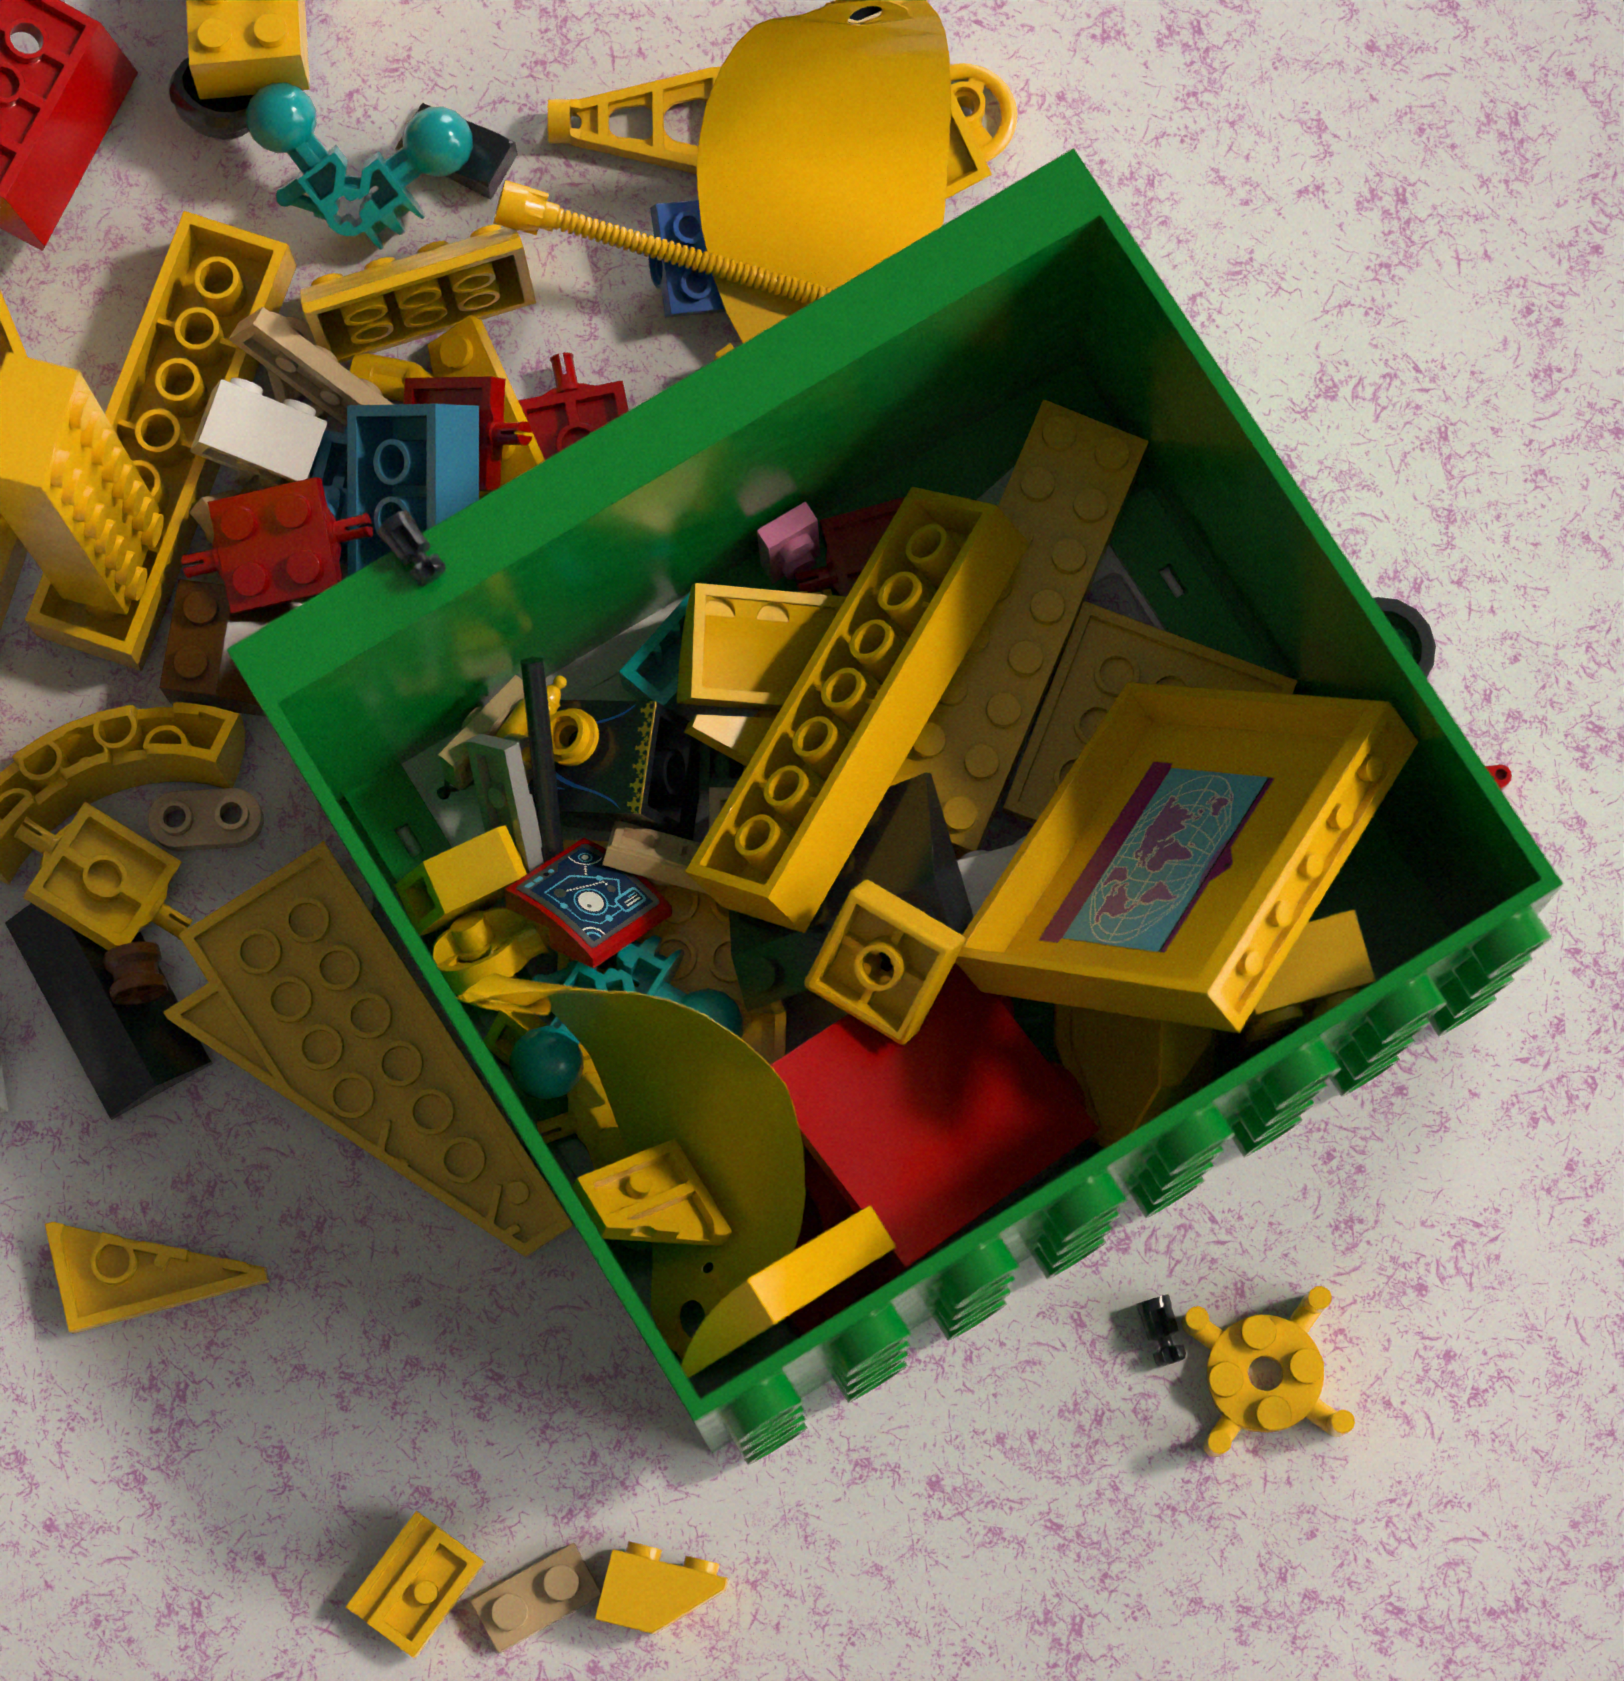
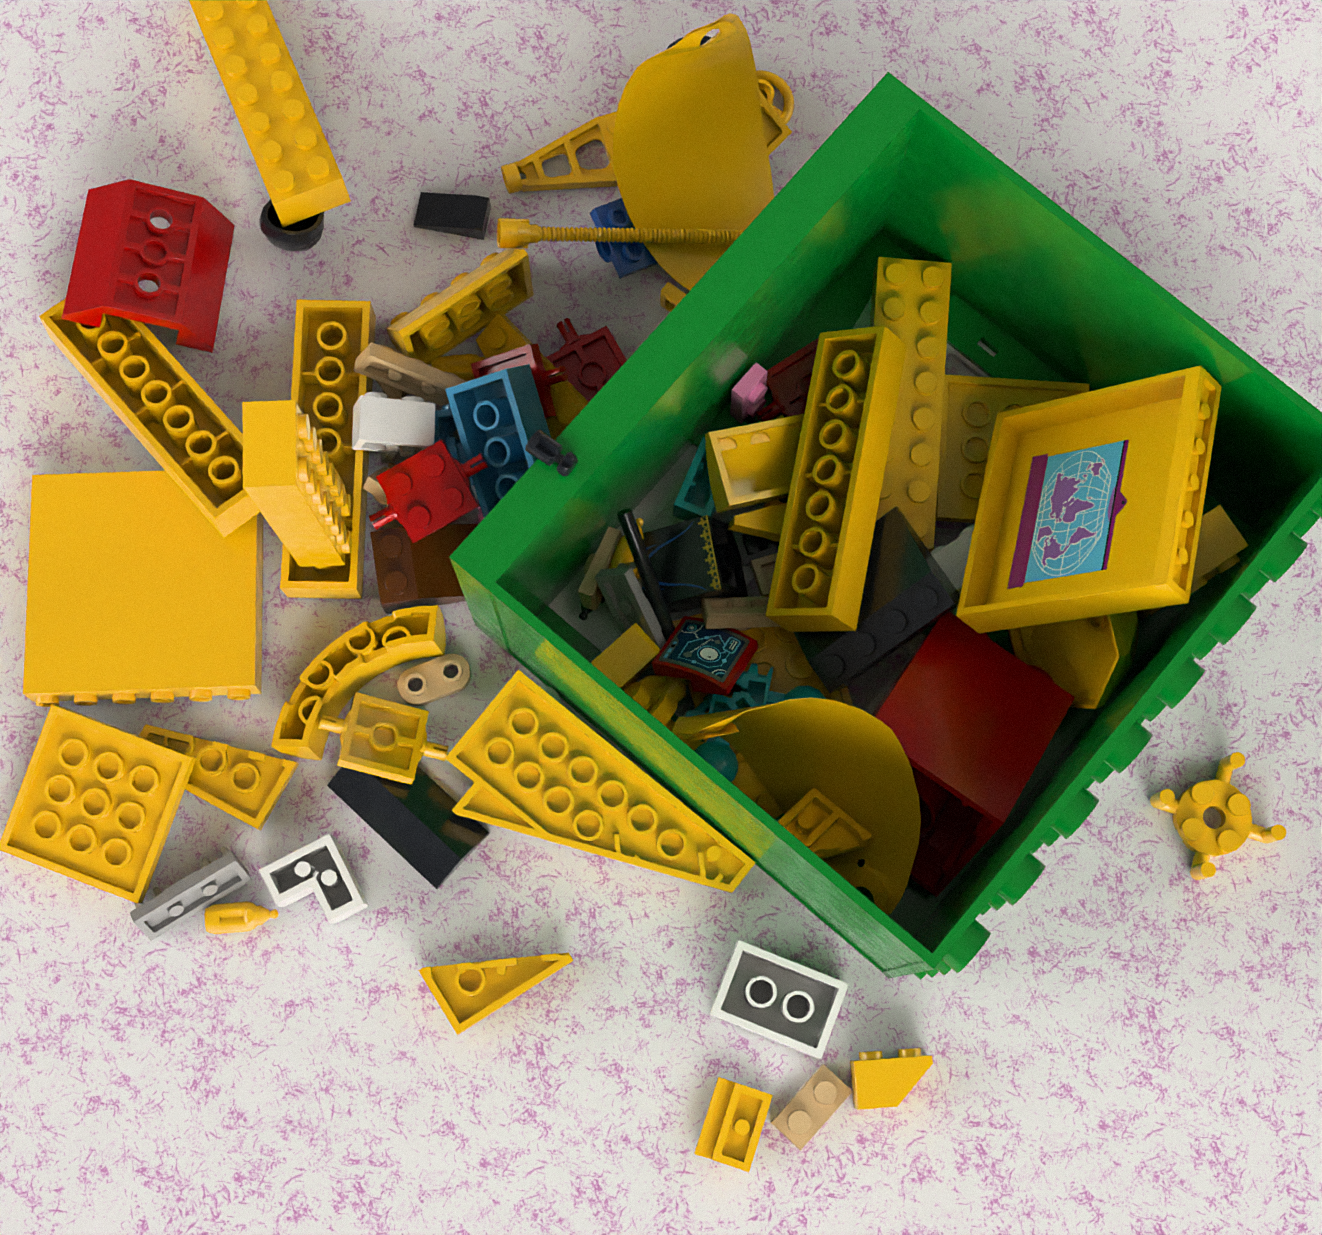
camera: 25 degrees left, 0 degrees up
(135, 973) = (425, 791): reddish brown wheel -> none
(433, 144) = (342, 225): teal piece -> none
(535, 1428) = (779, 999): none -> white brick
(563, 725) = (656, 543): yellow plate -> none
(787, 1287) = (948, 861): yellow slope -> none
(850, 962) = (937, 649): yellow brick -> none
(1161, 1325) = (1139, 808): black piece -> none

